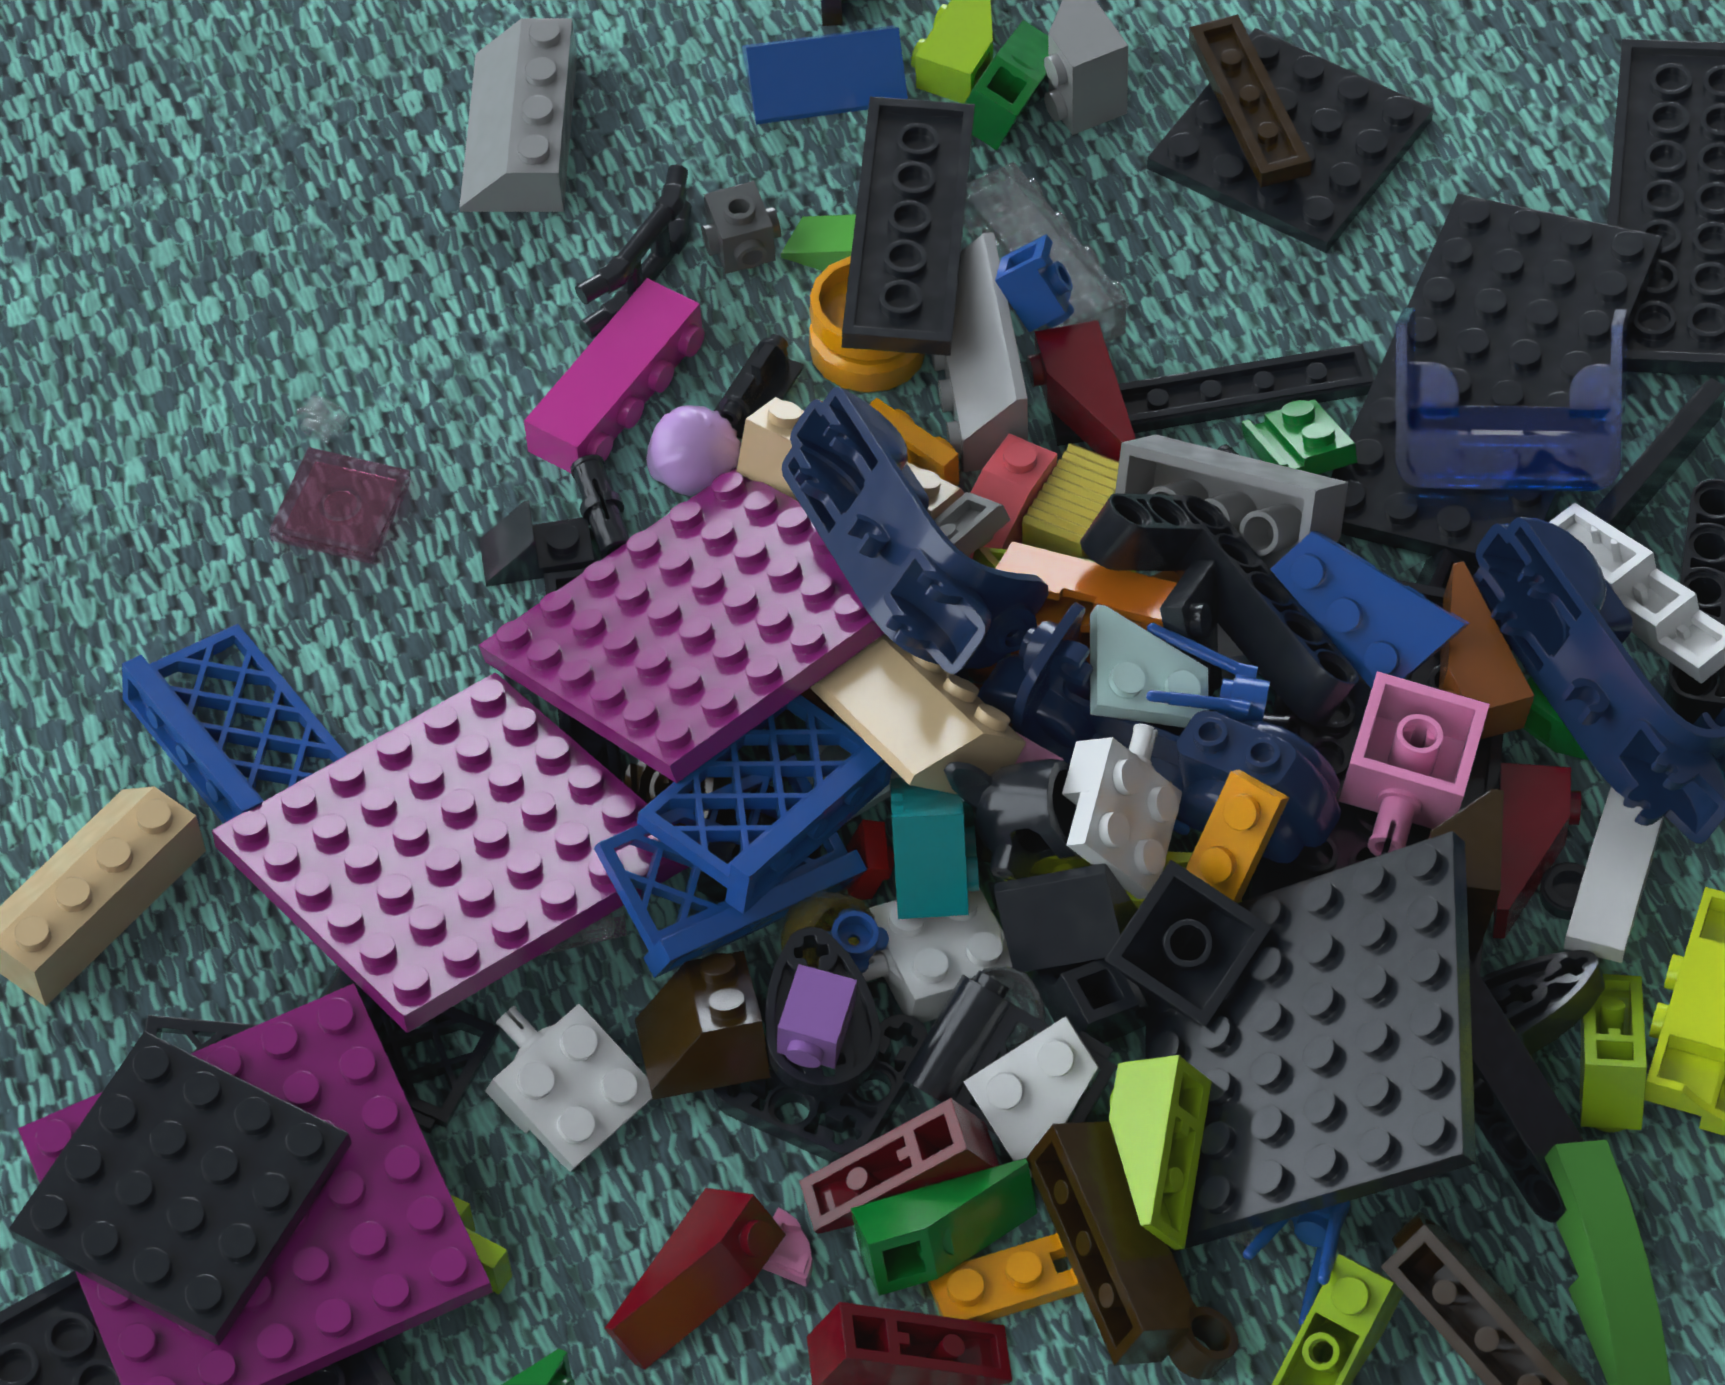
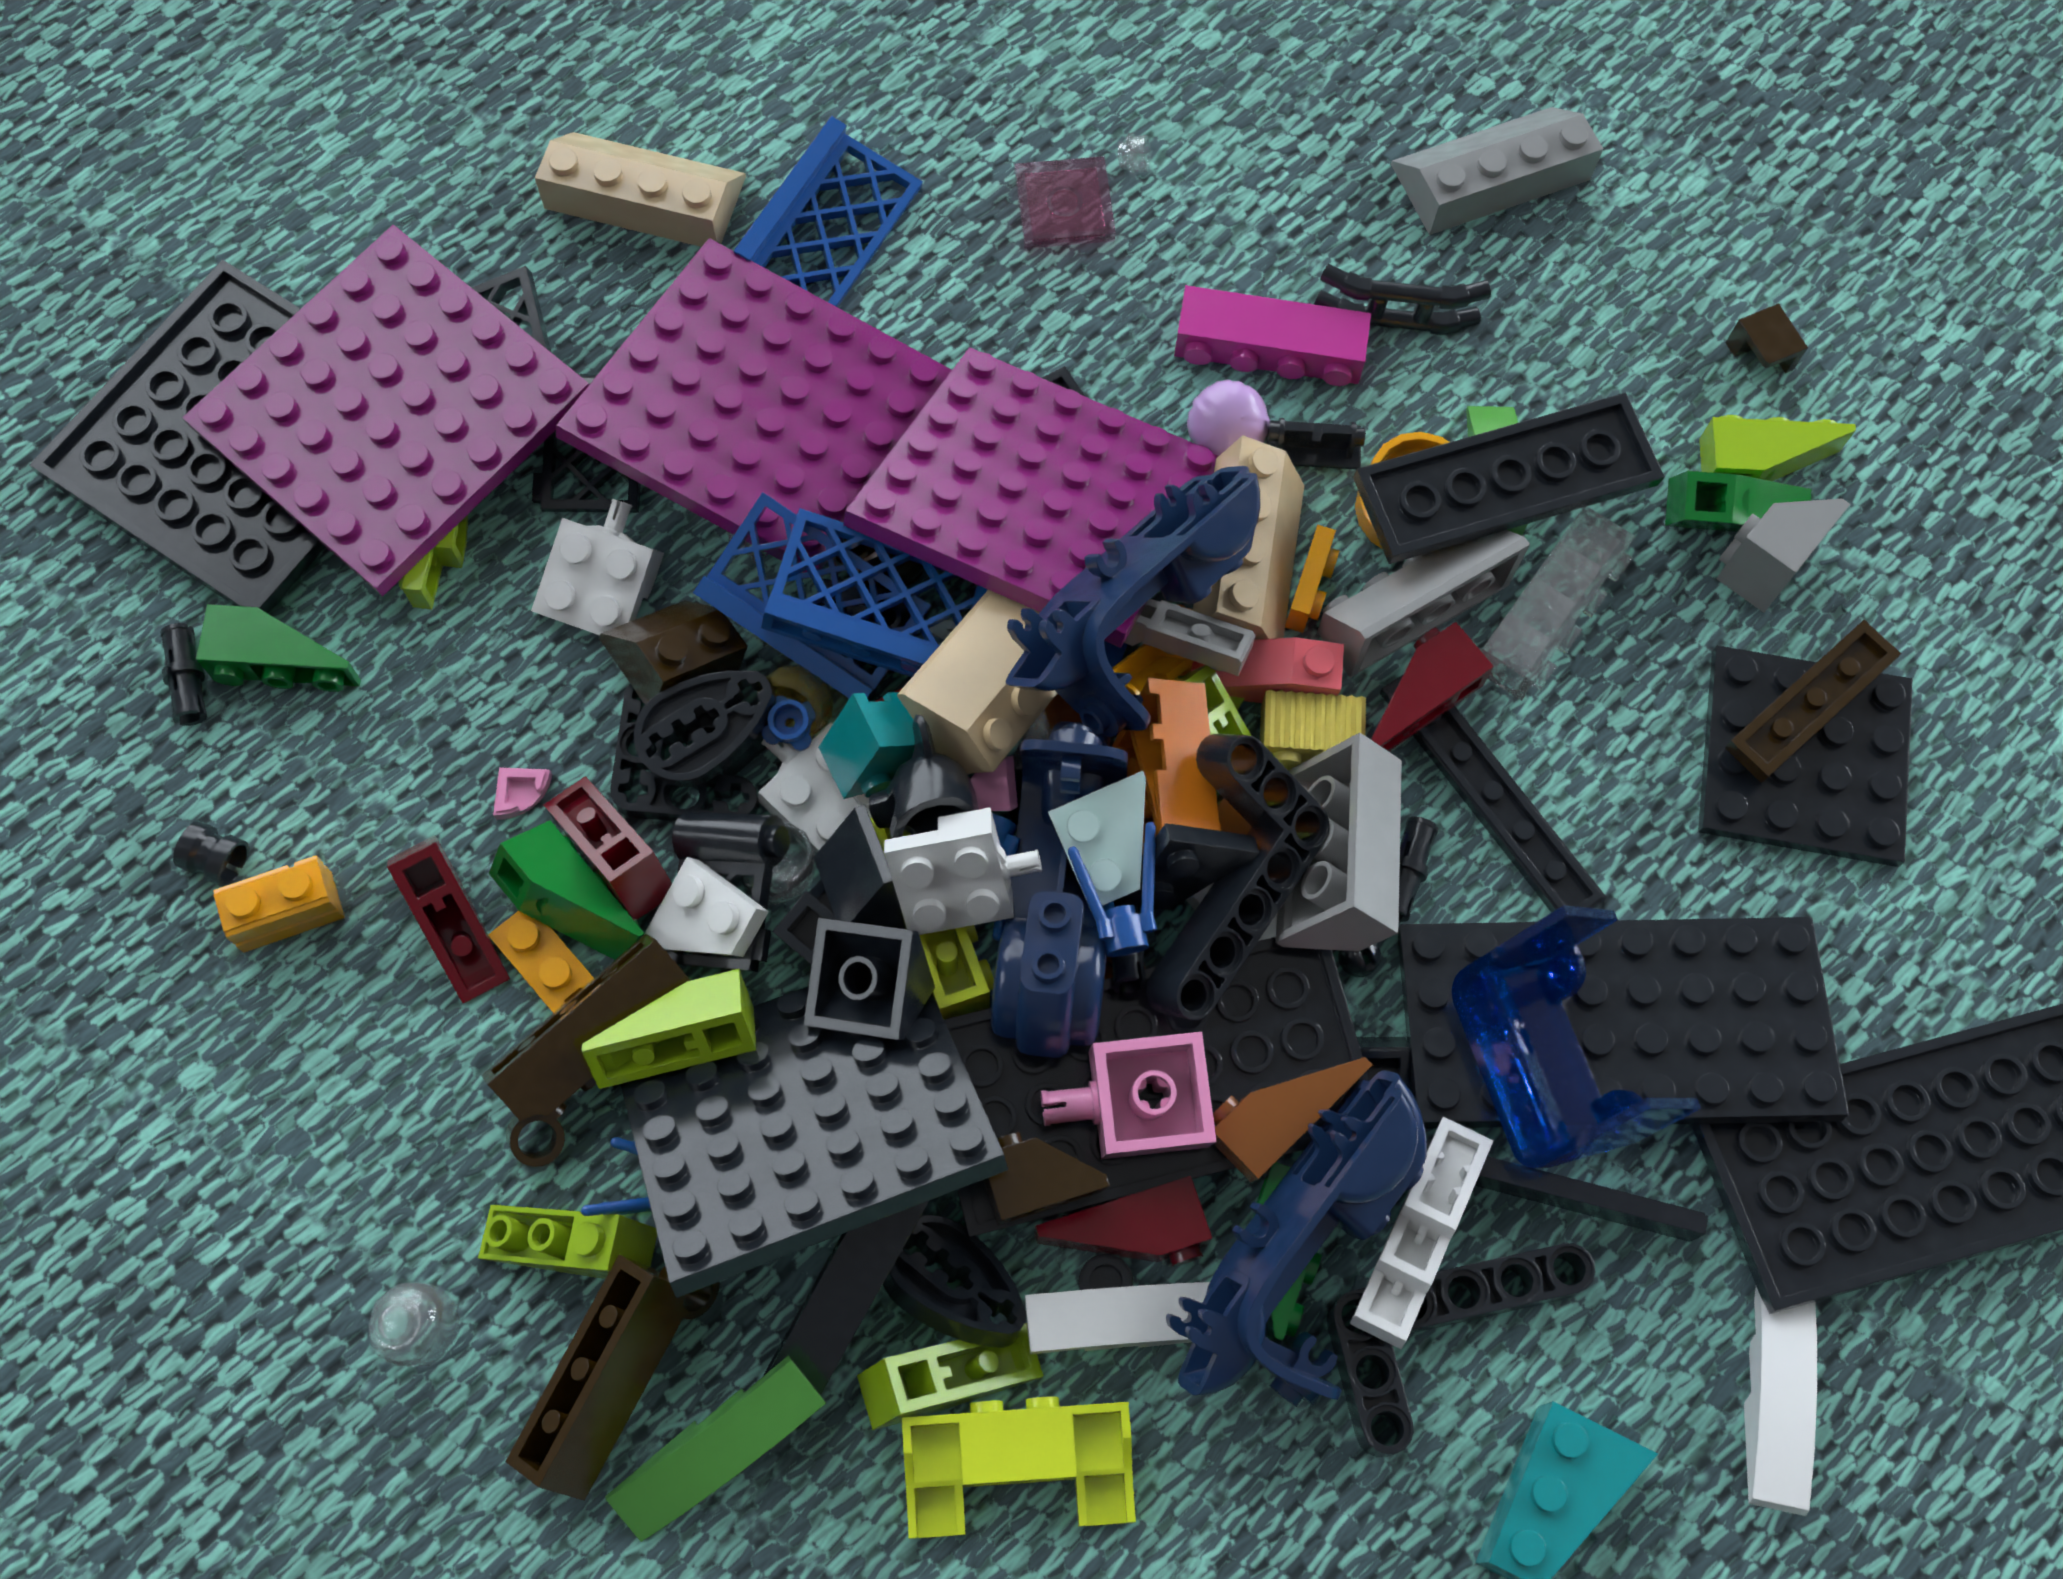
camera: 60 degrees right, 15 degrees up
(181, 1187) = (369, 346): black plate -> none
(525, 551) = (1086, 354): black slope -> none
(595, 485) = (1145, 377): black pin -> none
(695, 1273) = (461, 733): dark red slope -> none
(740, 238) = (1465, 361): dark grey brick -> none
(816, 1017) = (674, 718): medium lavender brick -> none
(824, 73) = (1671, 361): blue slope -> none
(1036, 285) = (1491, 599): blue brick -> none
(1236, 834) = (976, 976): light orange plate -> none
(1301, 438) = (1466, 883): green plate -> none
(1363, 610) = (1270, 1002): blue wing -> none

